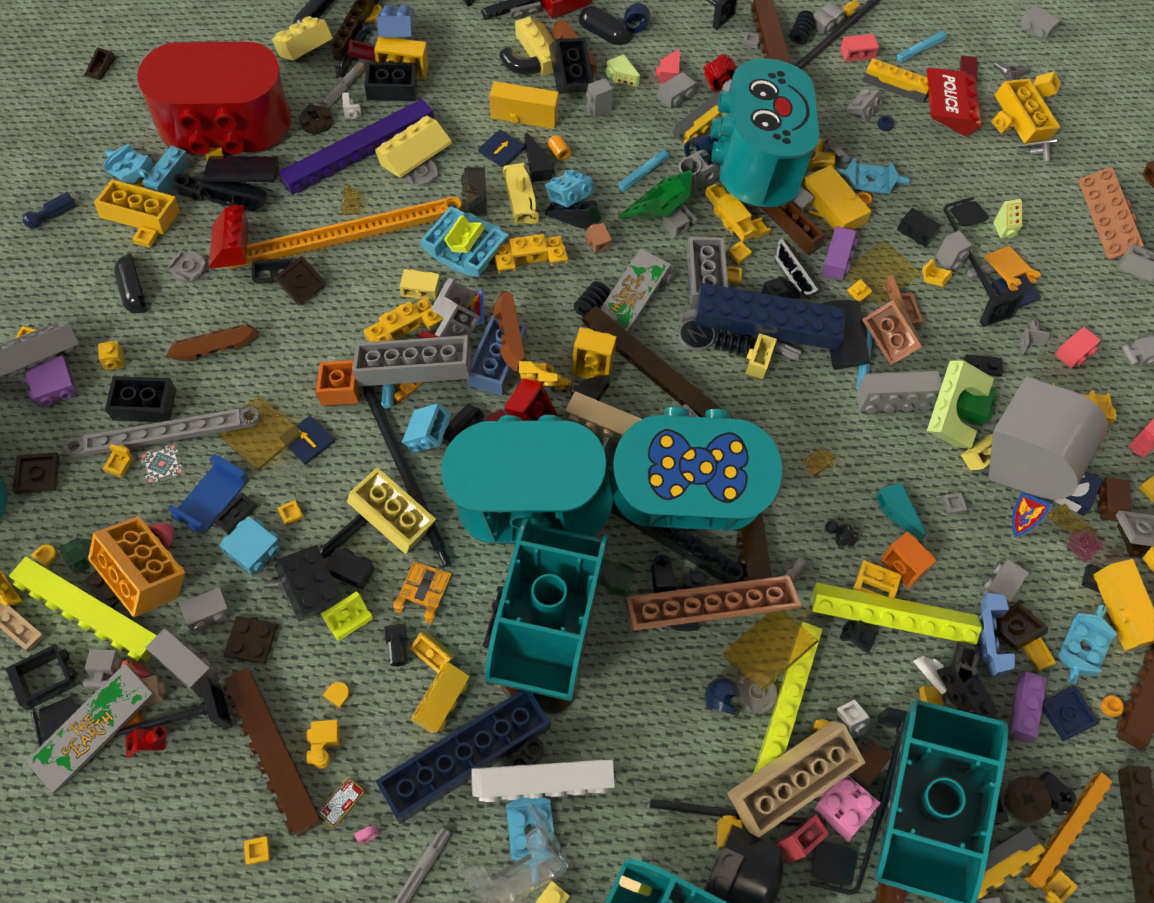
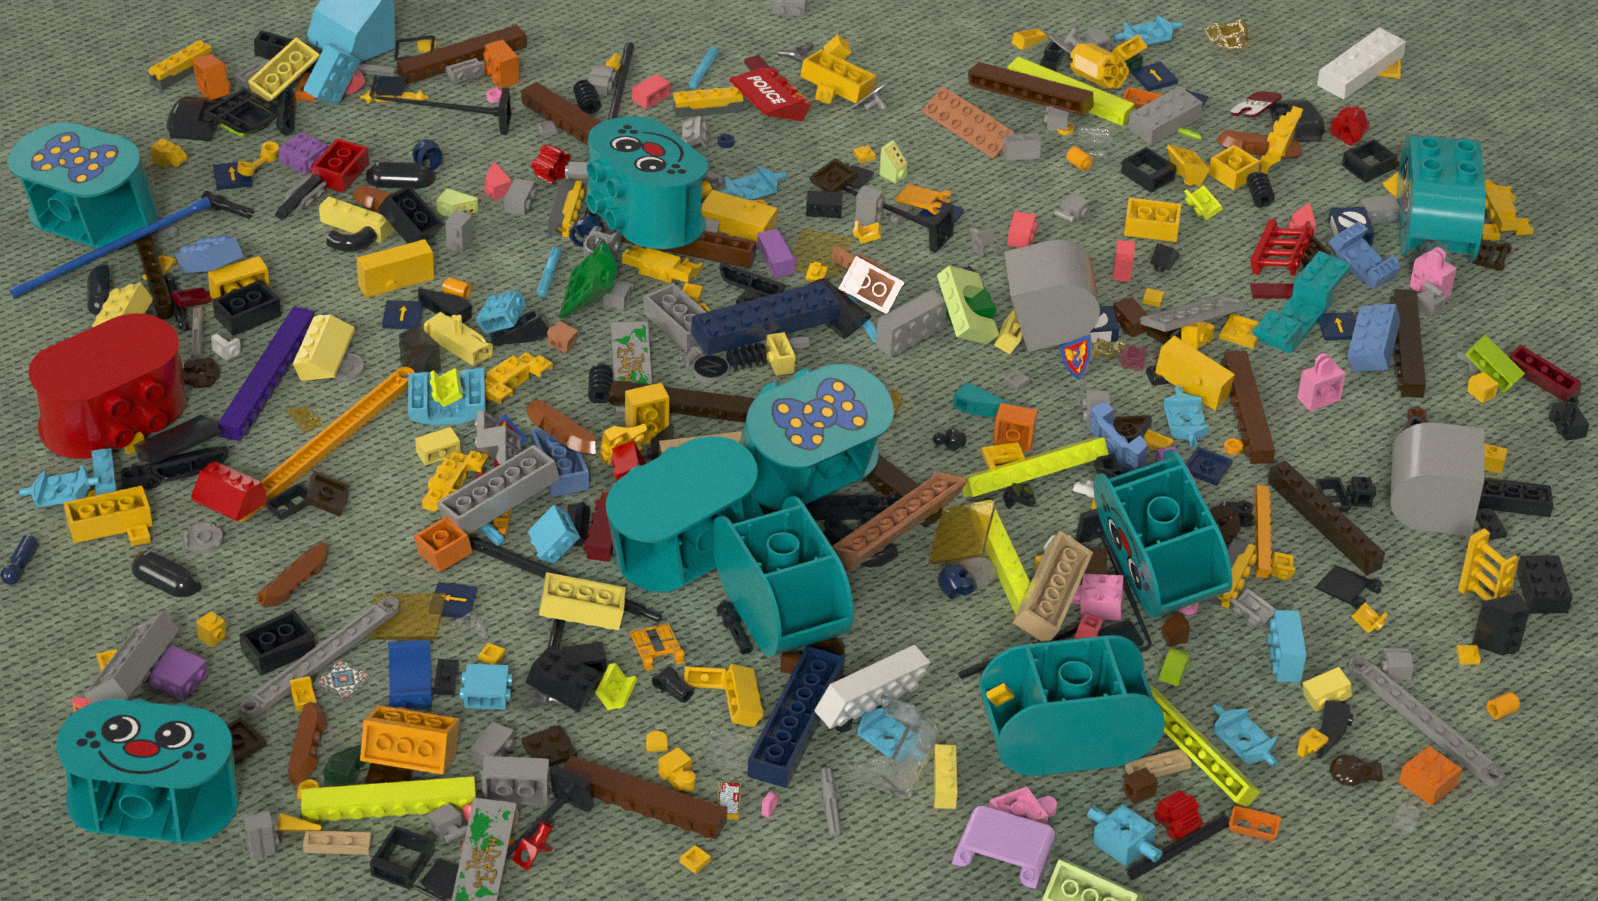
camera: 35 degrees left, 20 degrees down
(77, 509) = (304, 751): none -> dark orange brick
(948, 205) = (833, 176): none -> dark brown plate
(994, 196) = (864, 154): none -> yellow plate

